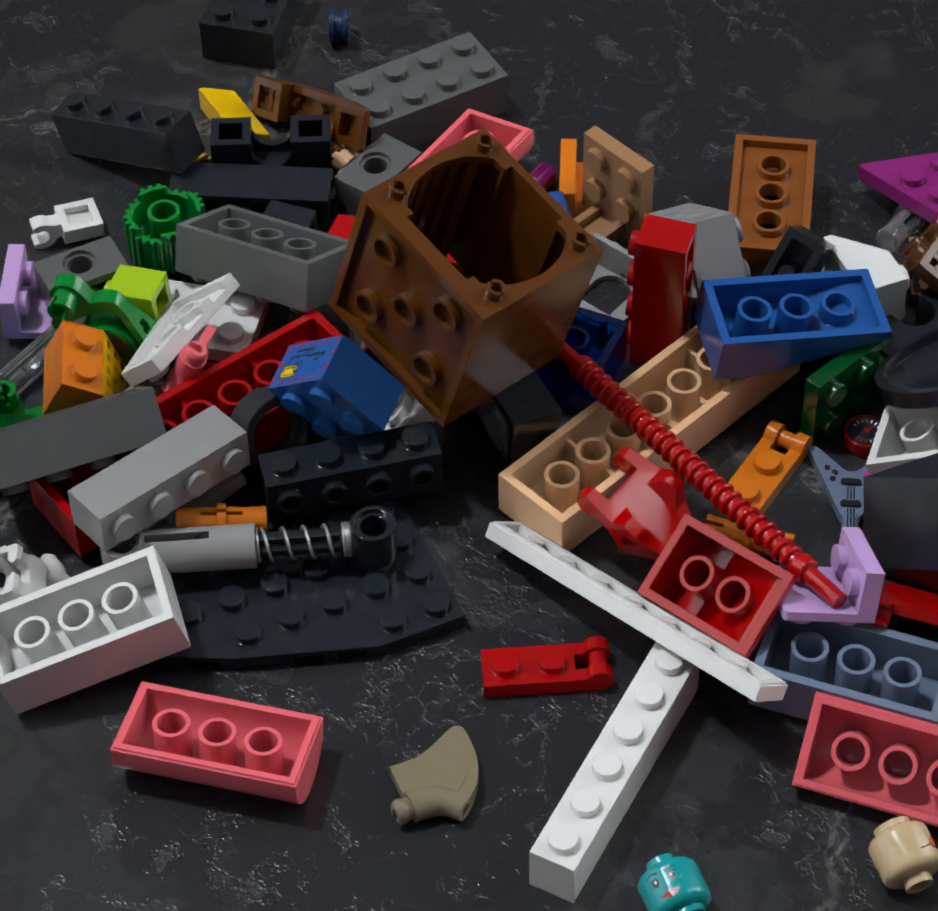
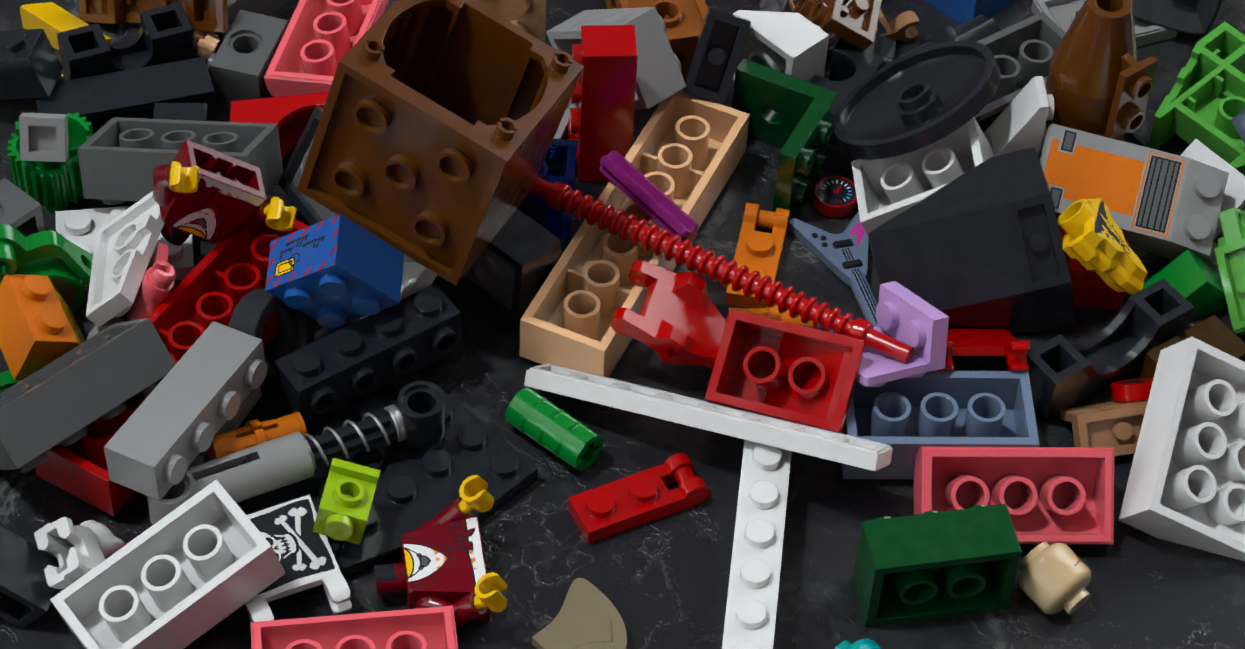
camera: 25 degrees left, 0 degrees up
(143, 287) = (67, 218): lime brick -> none
(152, 207) = (43, 137): none -> light grey tile
(216, 633) = (303, 555): none -> flag
(265, 292) = (213, 195): none -> torso
(270, 597) = (346, 501): none -> lime brick
(340, 676) = (447, 562): none -> torso
(495, 584) = (554, 429): none -> green axle
(666, 391) = (648, 196): none -> magenta axle
(786, 319) = (736, 101): blue slope -> none
(786, 807) = (935, 565): none -> dark green brick

